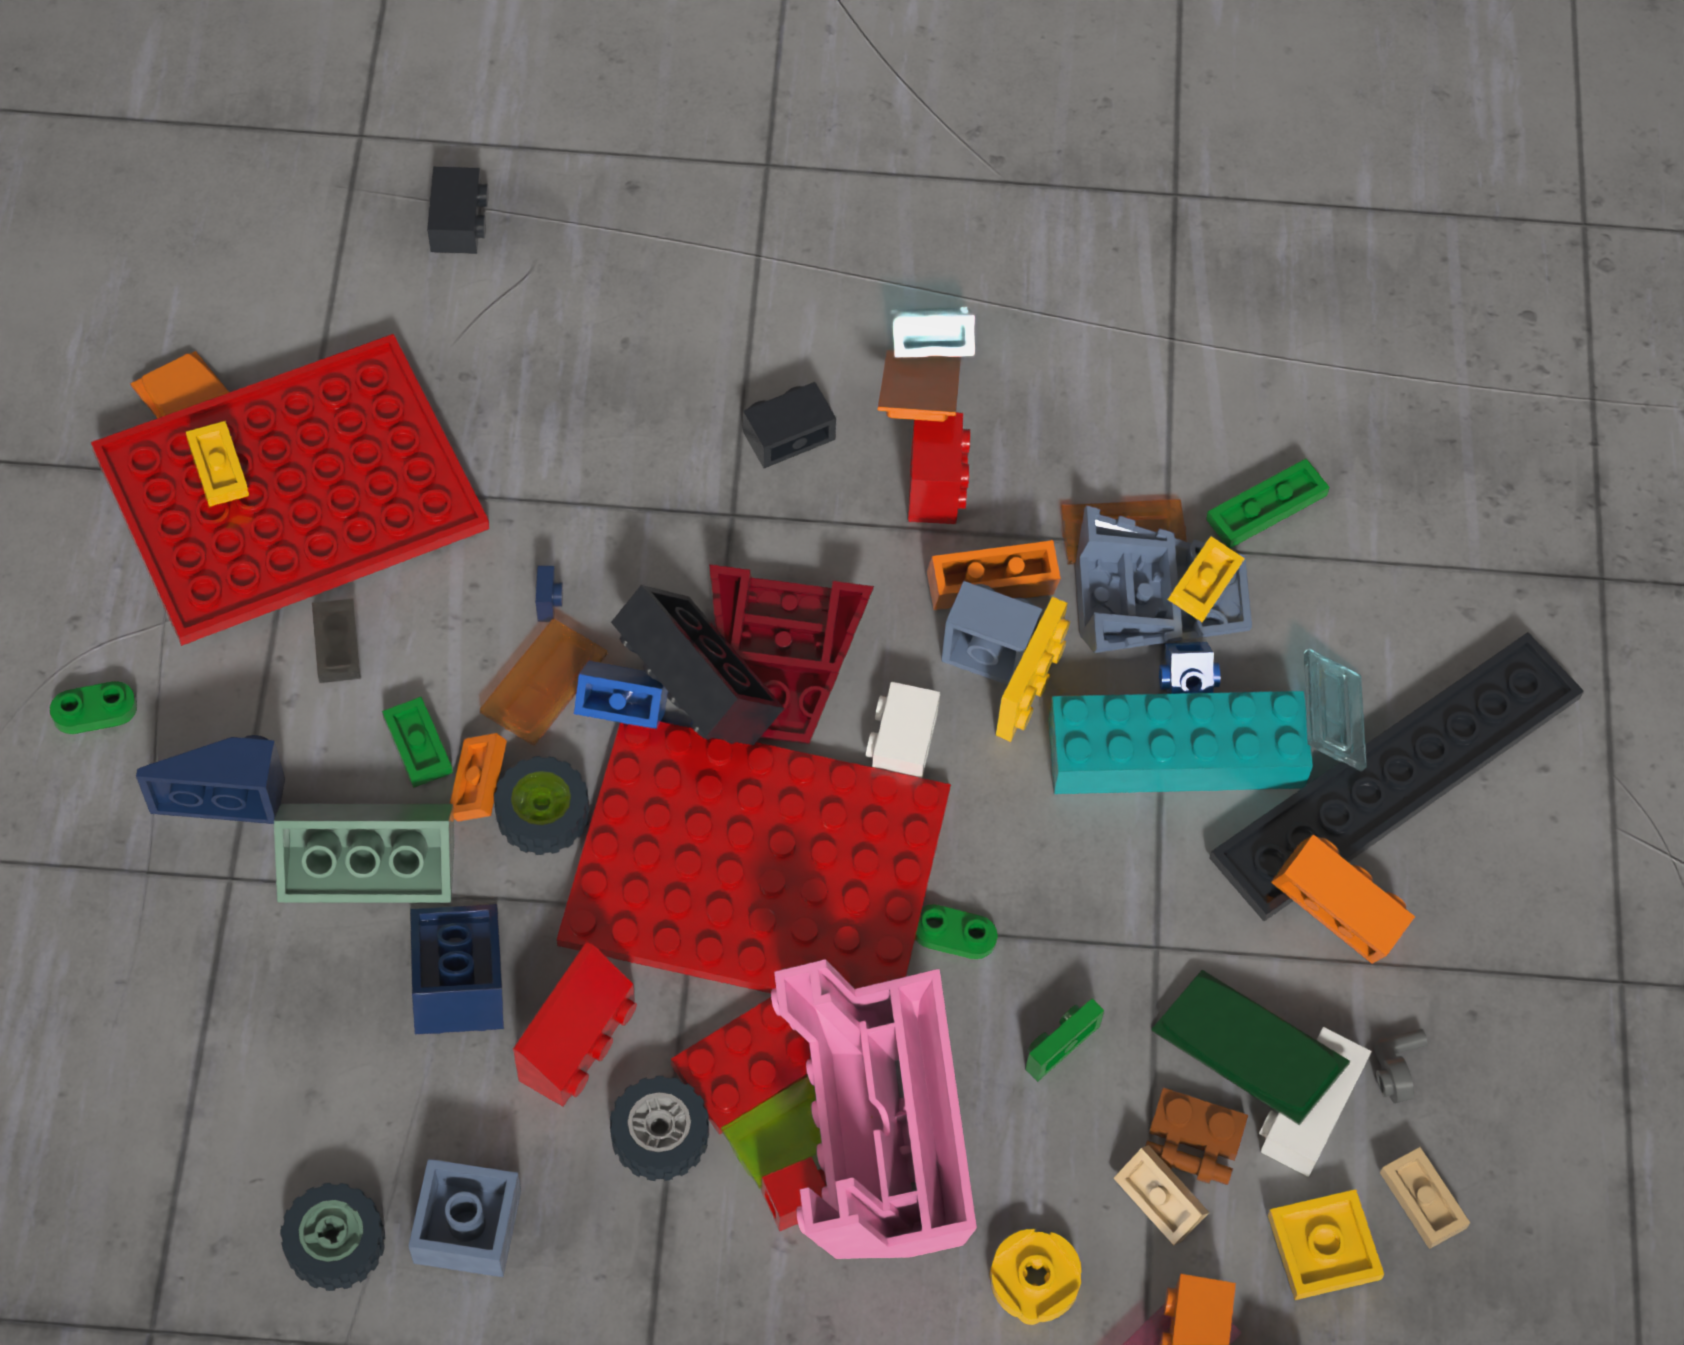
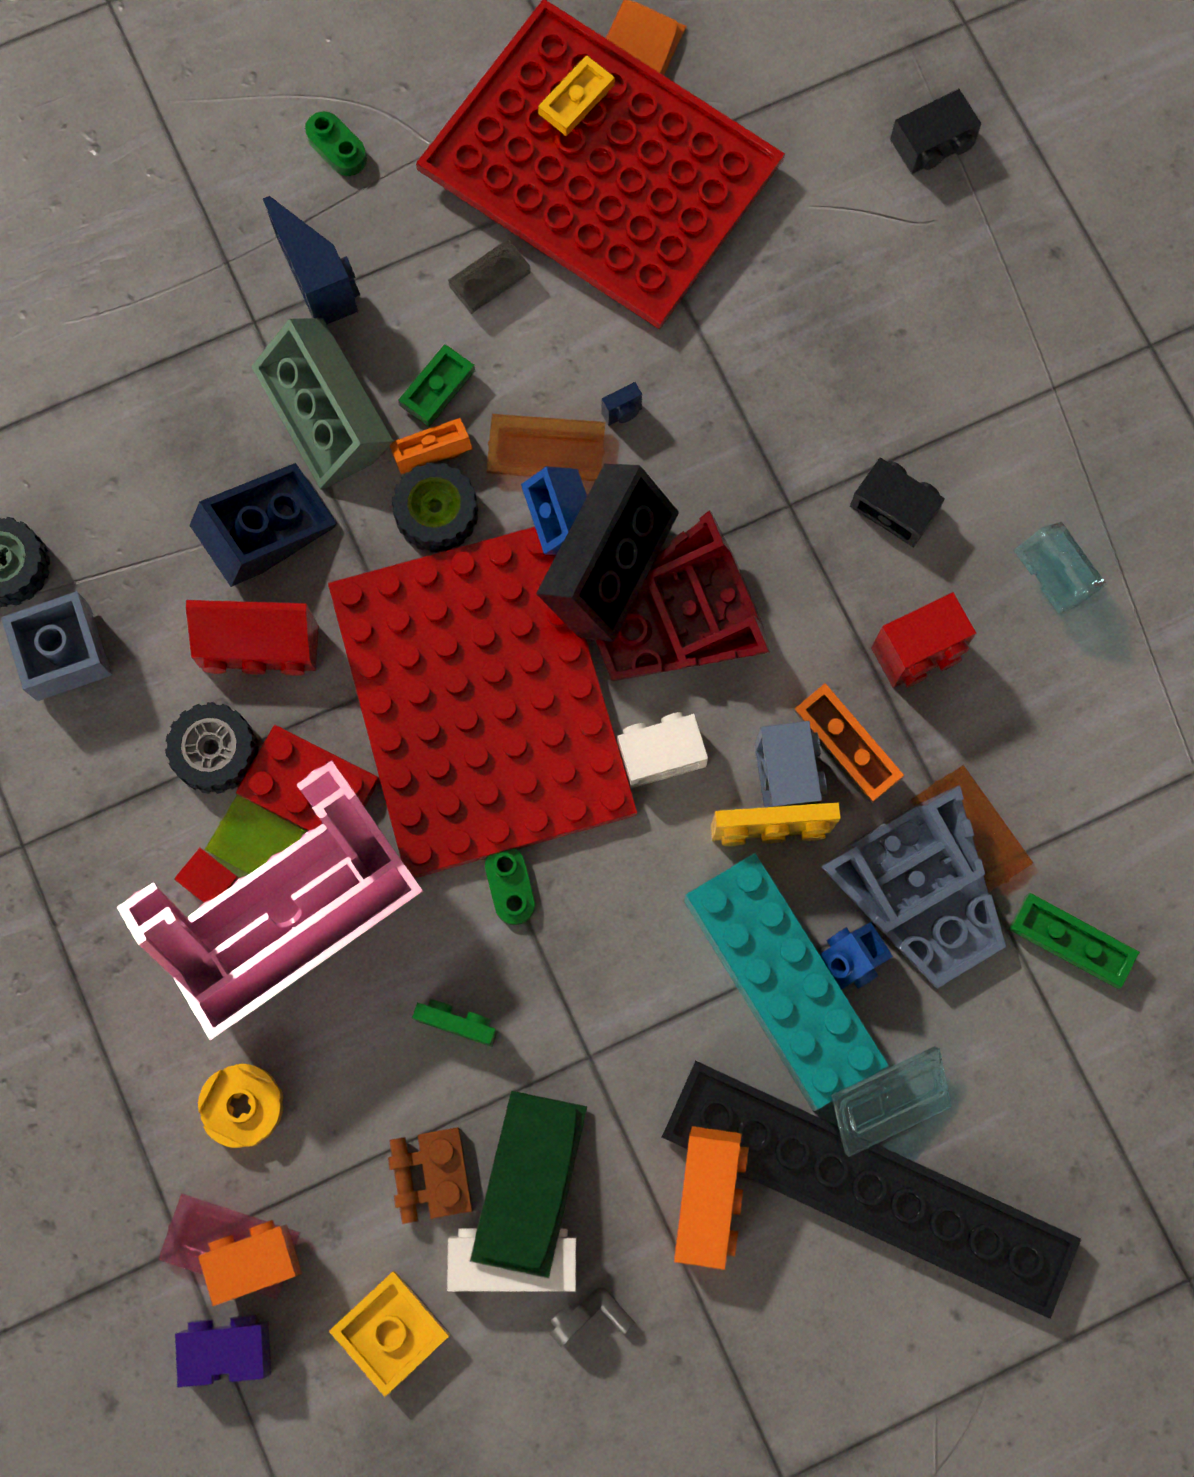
camera: 65 degrees right, 15 degrees up
(920, 387) = (985, 585): orange piece -> none
(1161, 1195) = (360, 1173): tan plate -> none
(1206, 579) = (951, 925): yellow plate -> none
(1424, 1197) = (476, 1399): tan plate -> none

